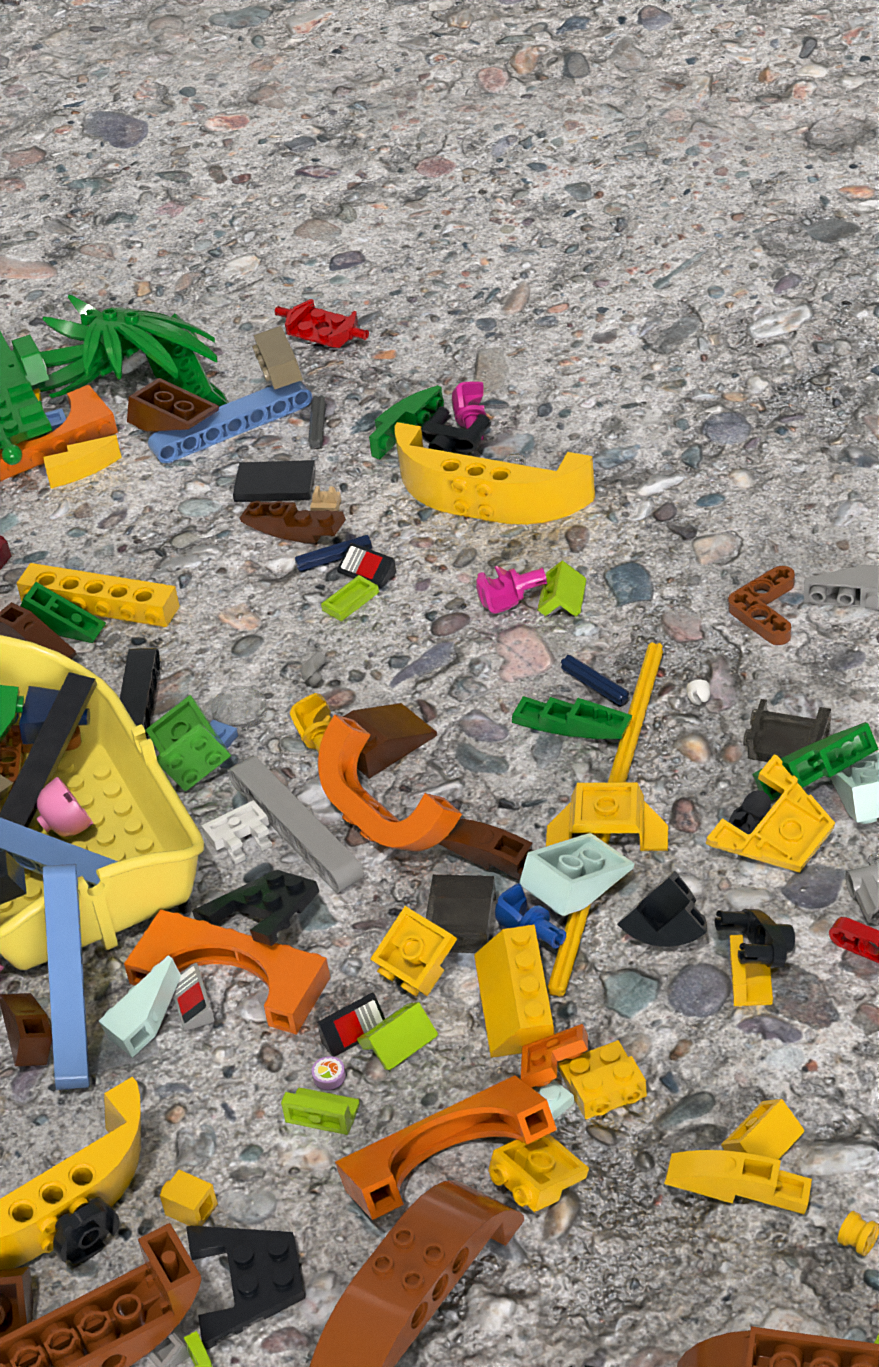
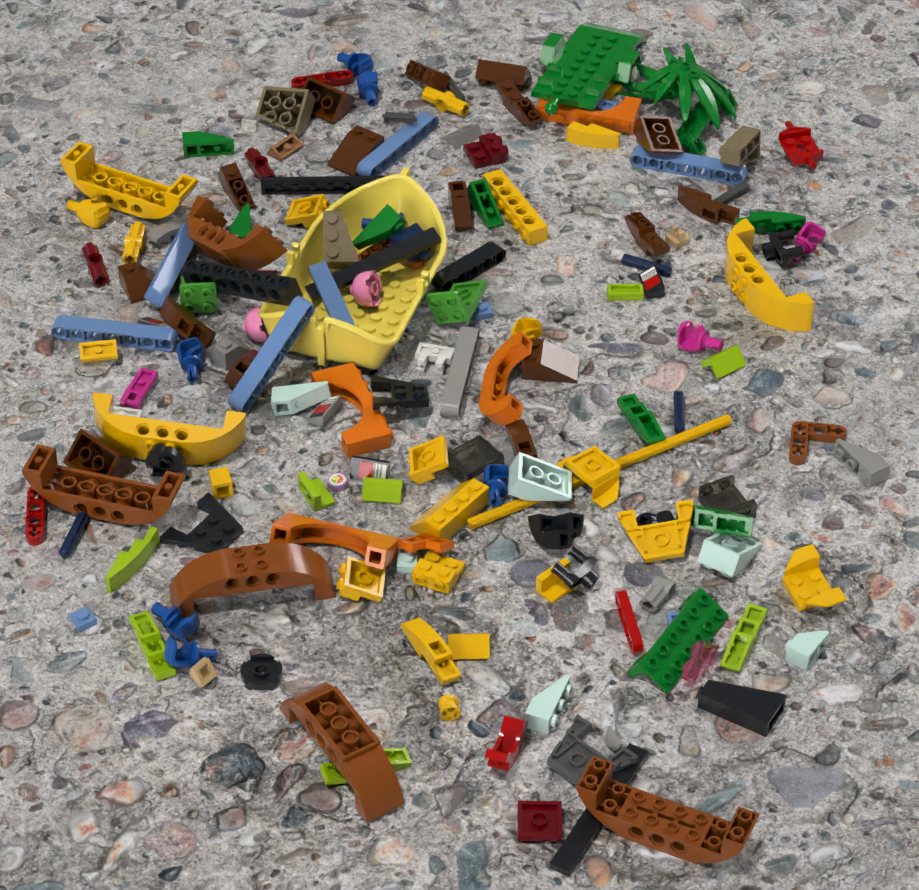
camera: 40 degrees right, 0 degrees up
(274, 481) = (669, 210): black tile -> none
(323, 447) = (706, 208): none -> reddish brown slope
(698, 691) = (716, 453): white hinge -> none

